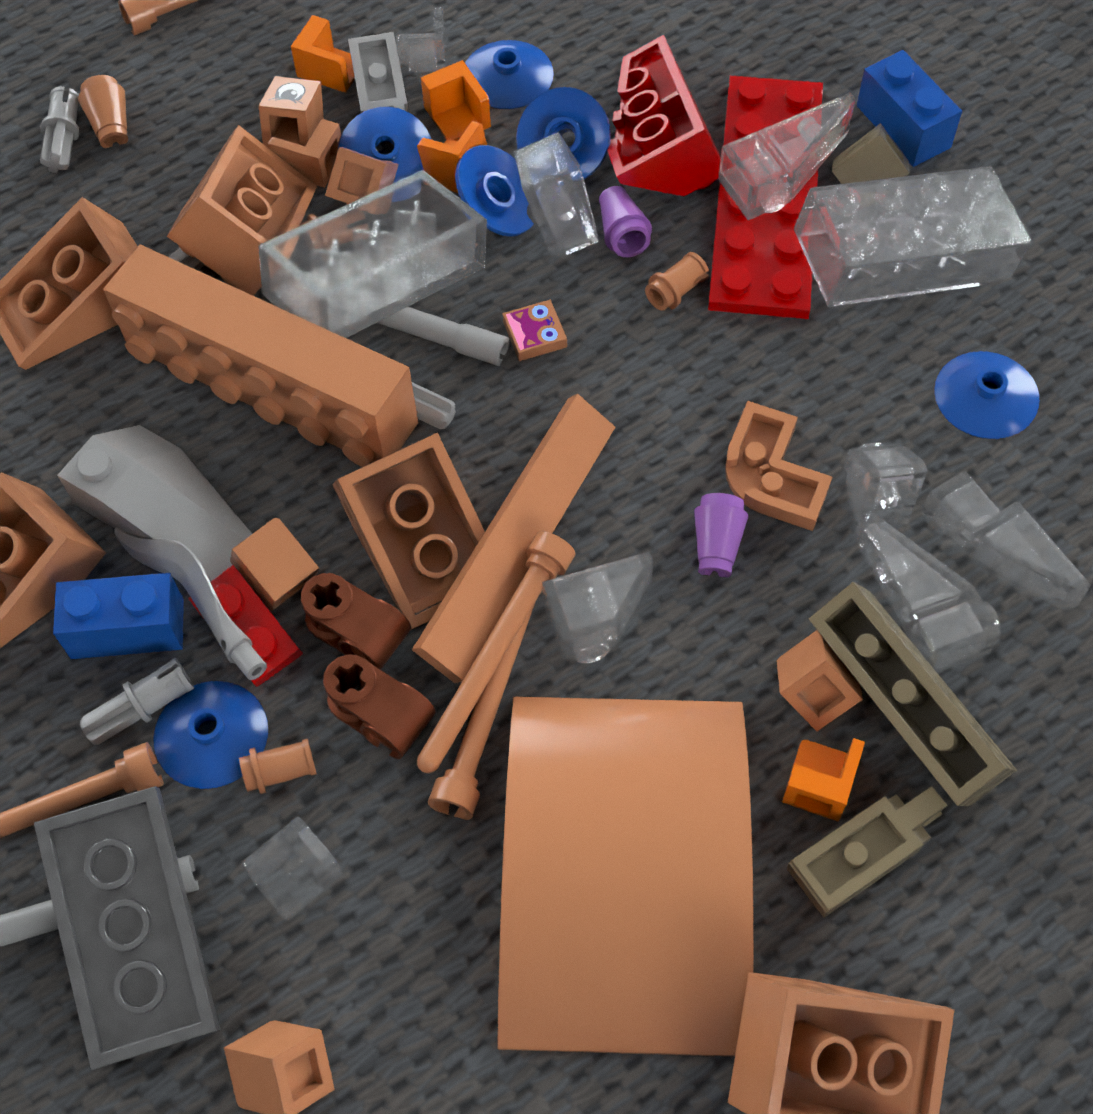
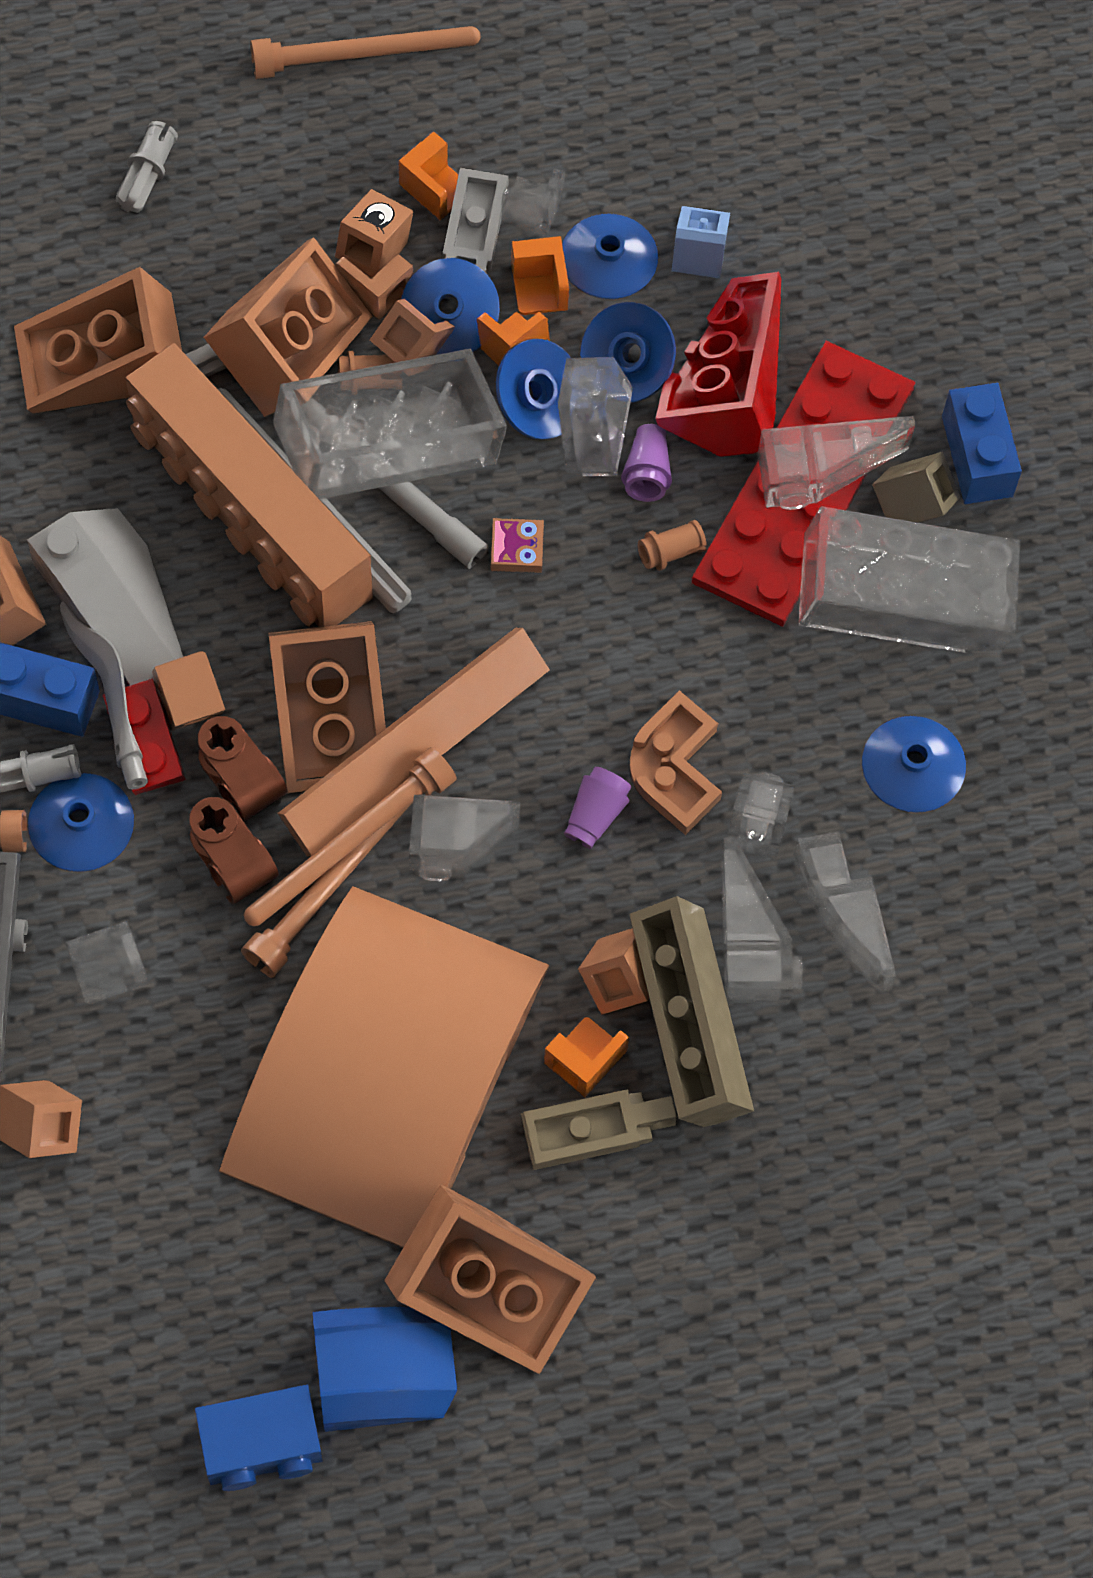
camera: 15 degrees right, 5 degrees up
(105, 109) = (197, 160): nougat cone -> none
(276, 765) = (126, 871): nougat pin -> none
(586, 36) = (700, 242): none -> light blue slope

